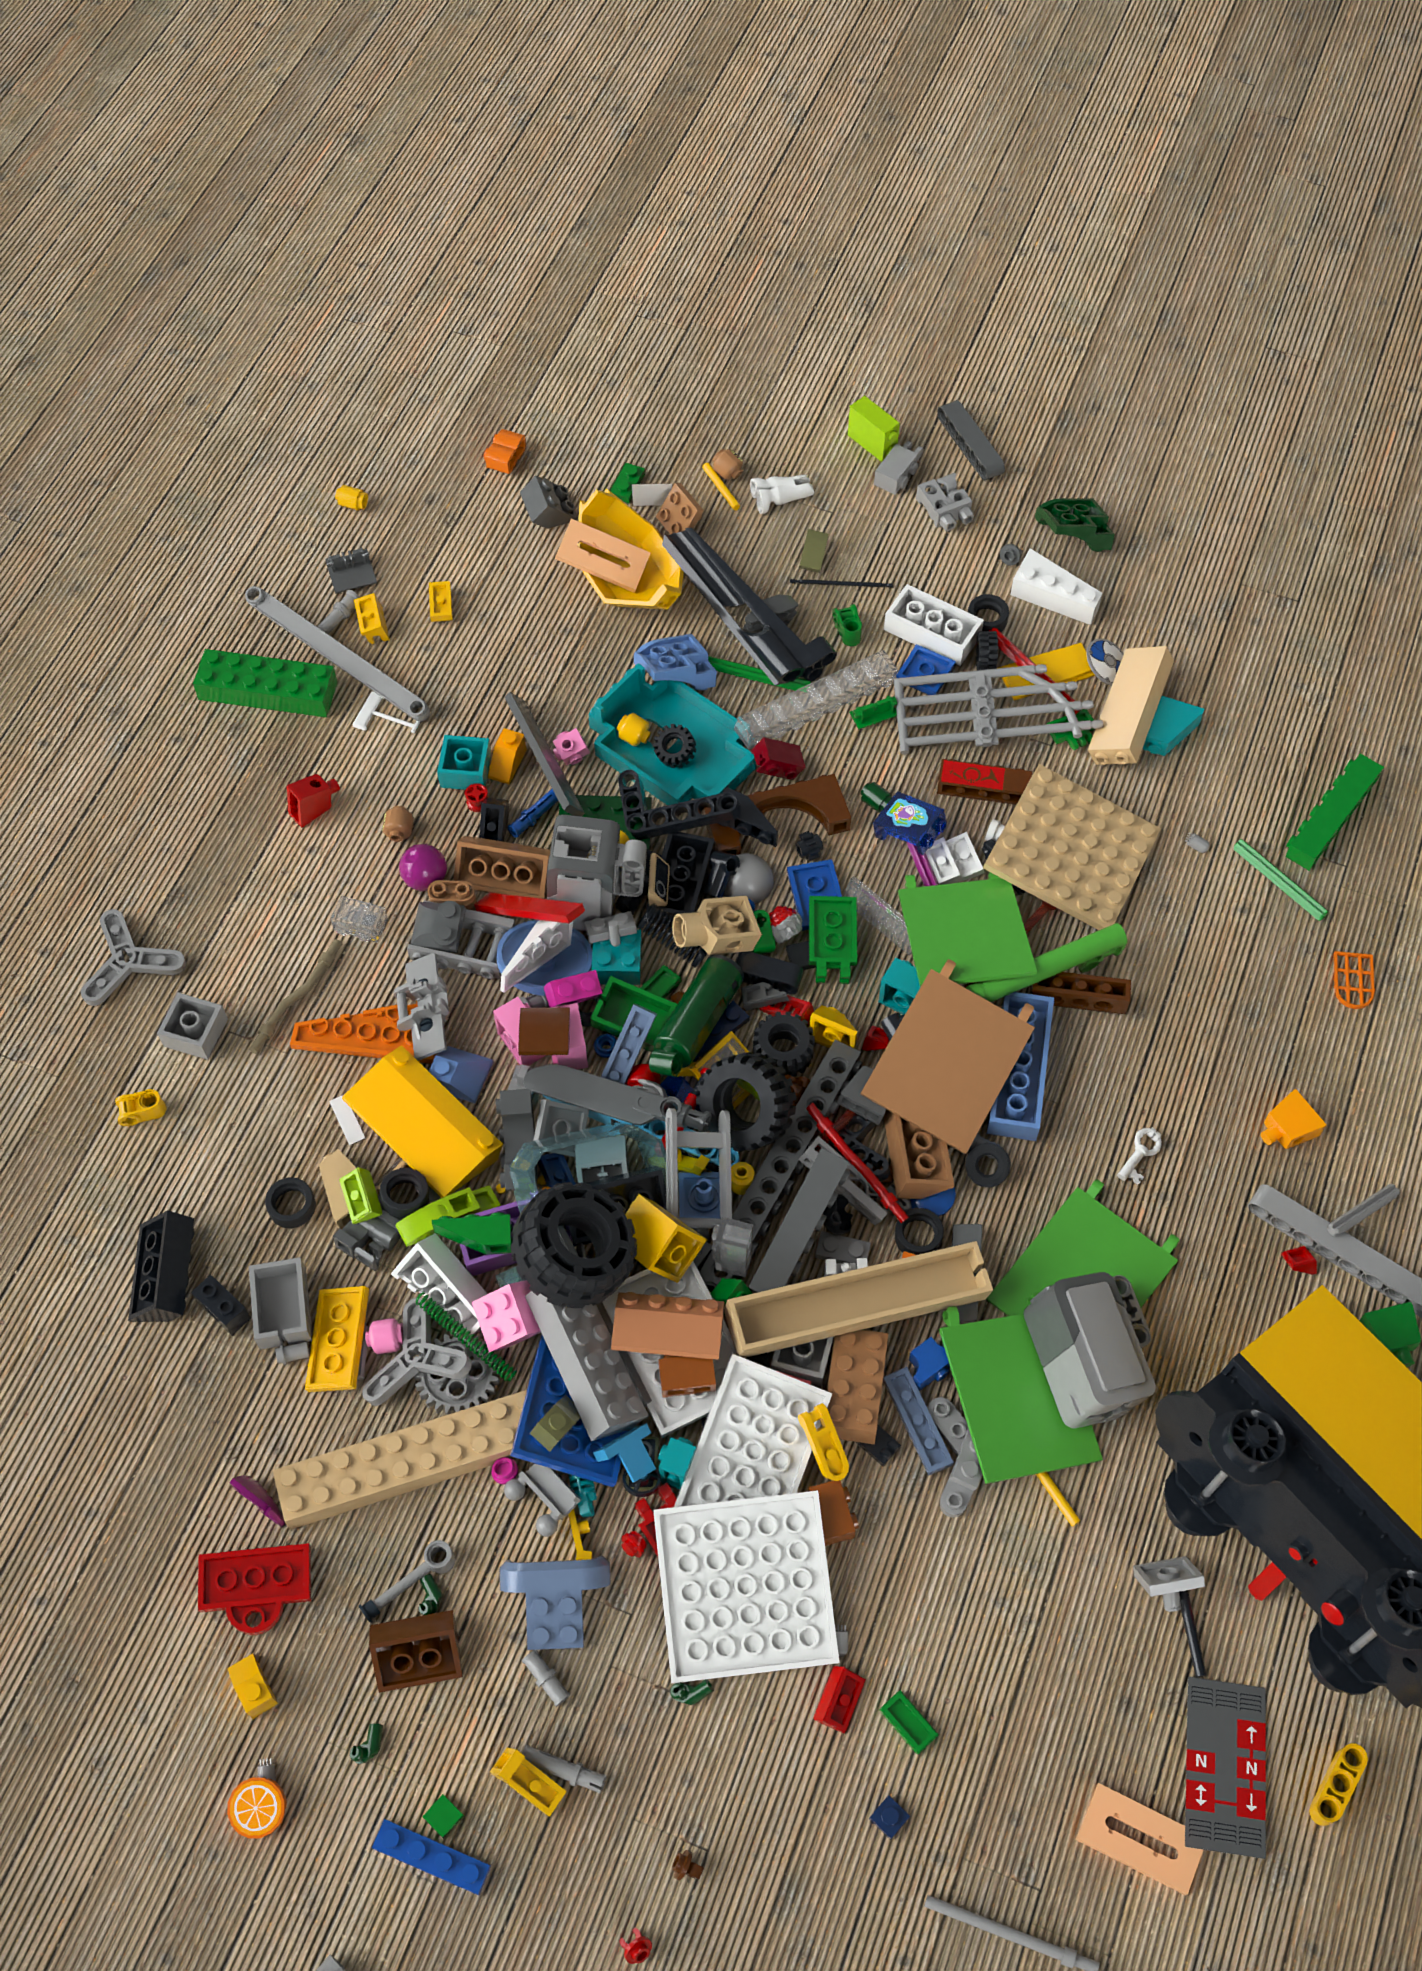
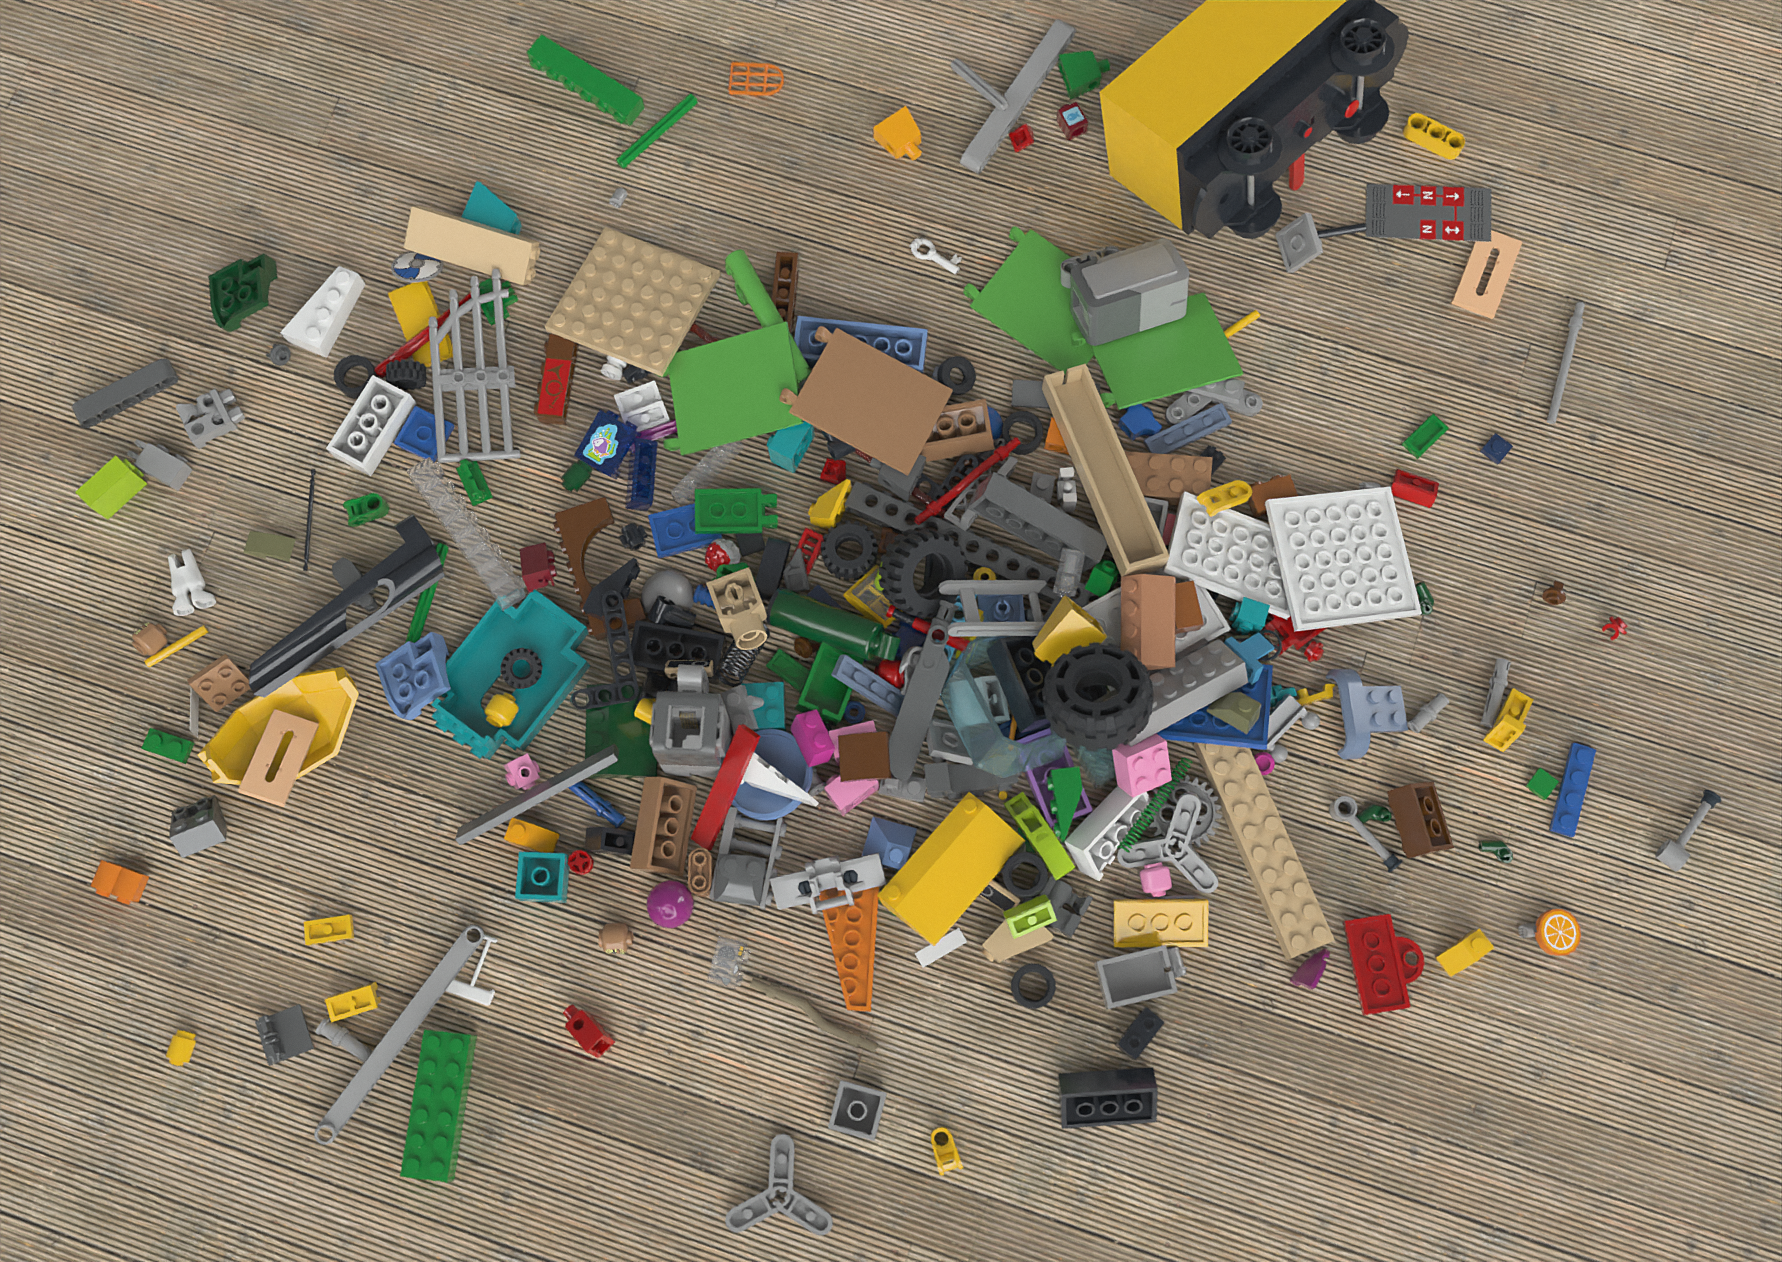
camera: 90 degrees left, 15 degrees up
(875, 852) = (641, 474): none -> clear blue brick

